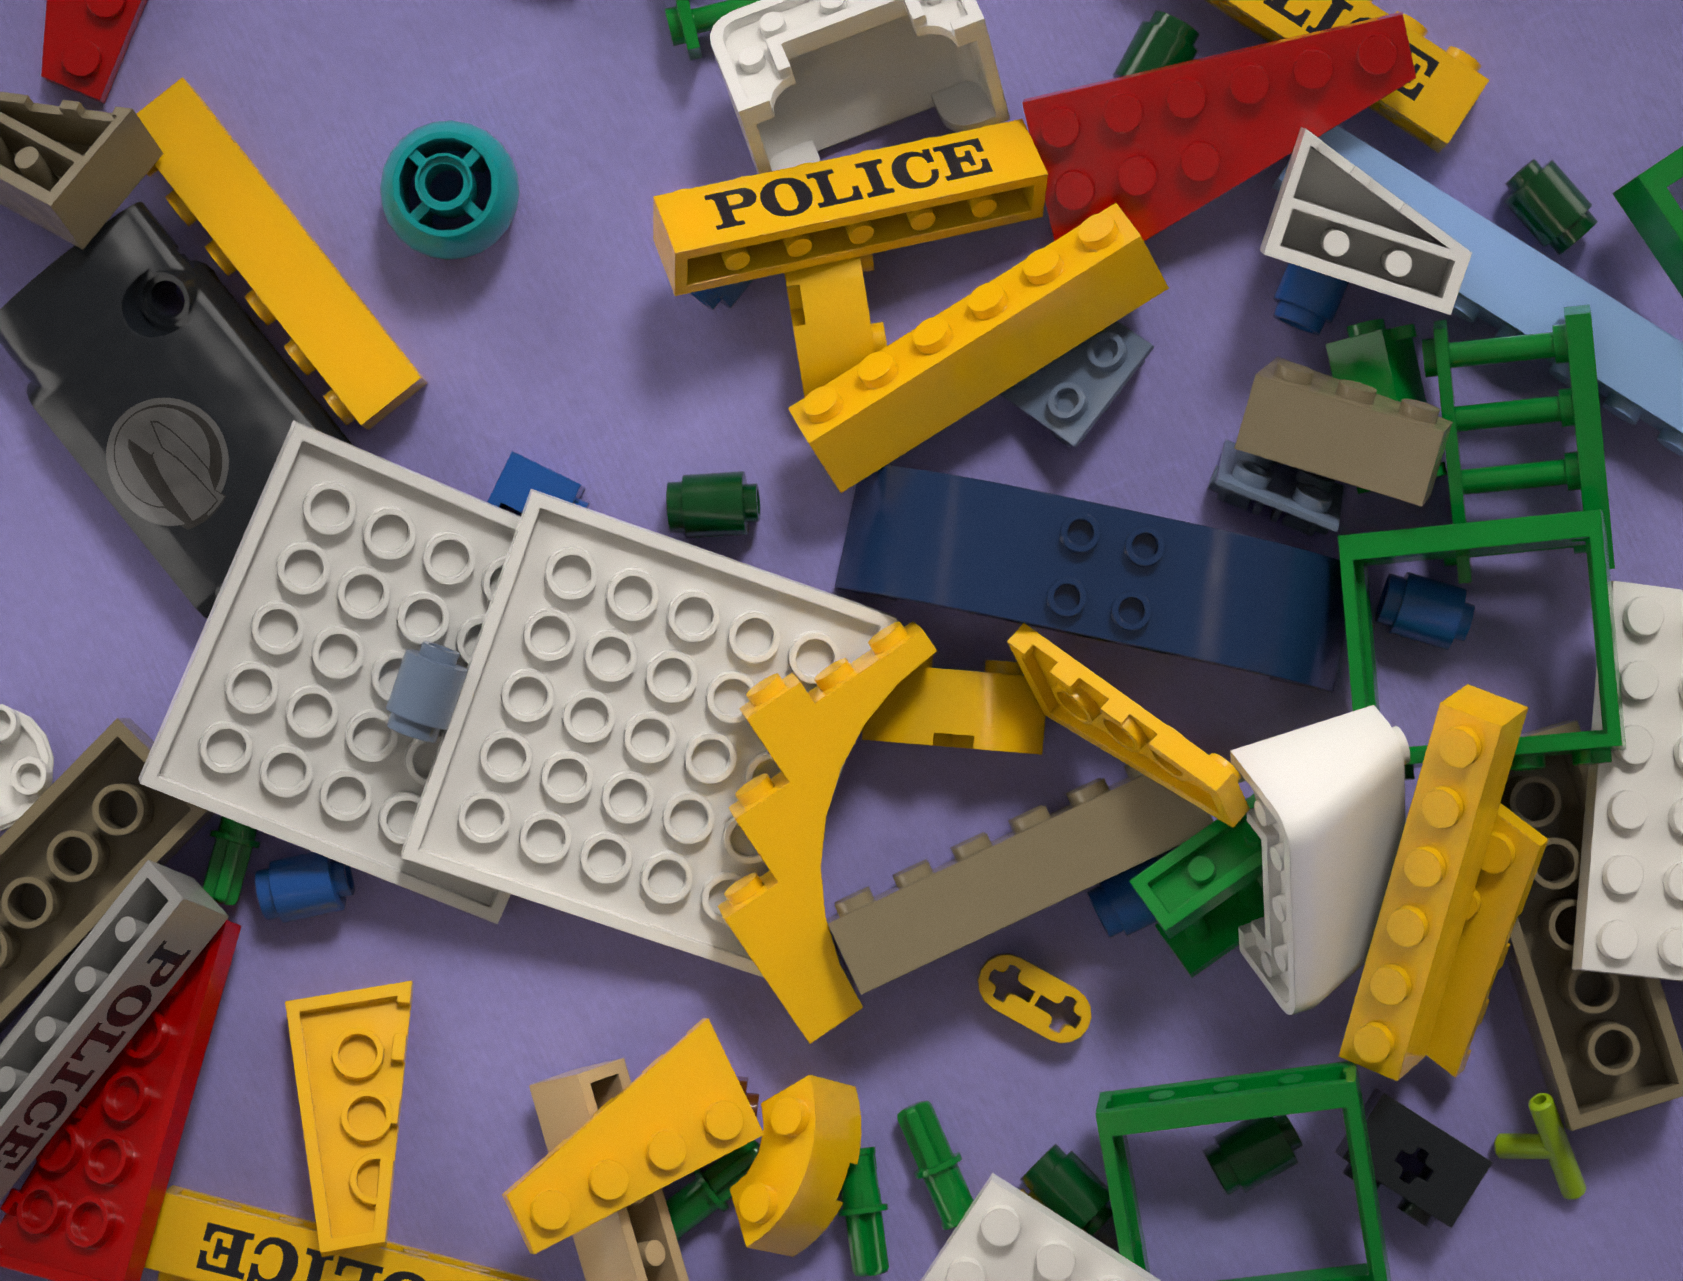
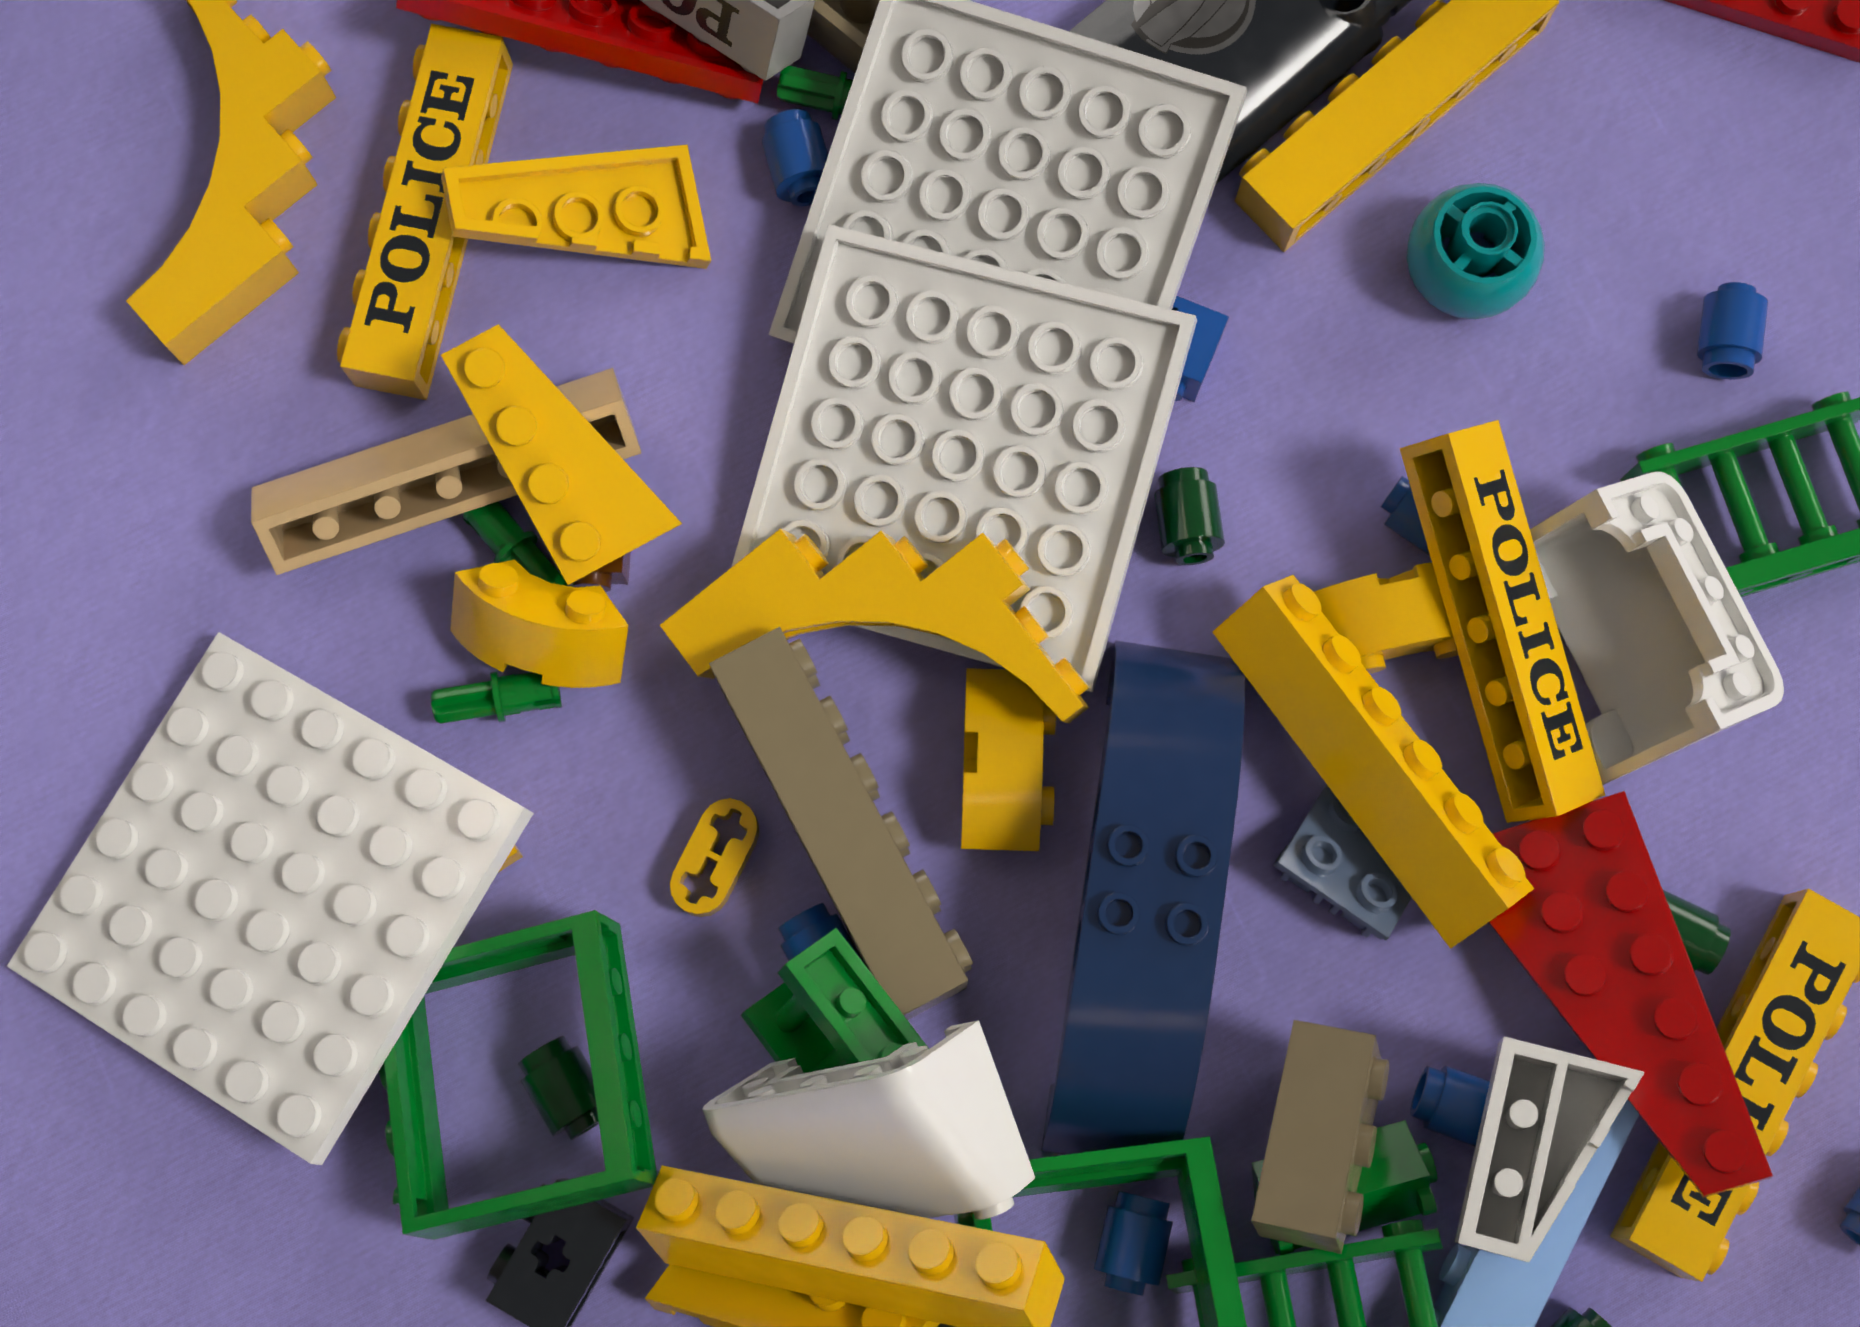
camera: 85 degrees right, 10 degrees down
(426, 691) = (991, 232): sand blue brick -> none
(936, 1162) = (549, 765): green axle -> none
(1069, 1189) = (519, 897): dark green brick -> none
(1124, 729) = (992, 918): yellow wing -> none
(1307, 498) = (1247, 1108): sand blue hinge -> none

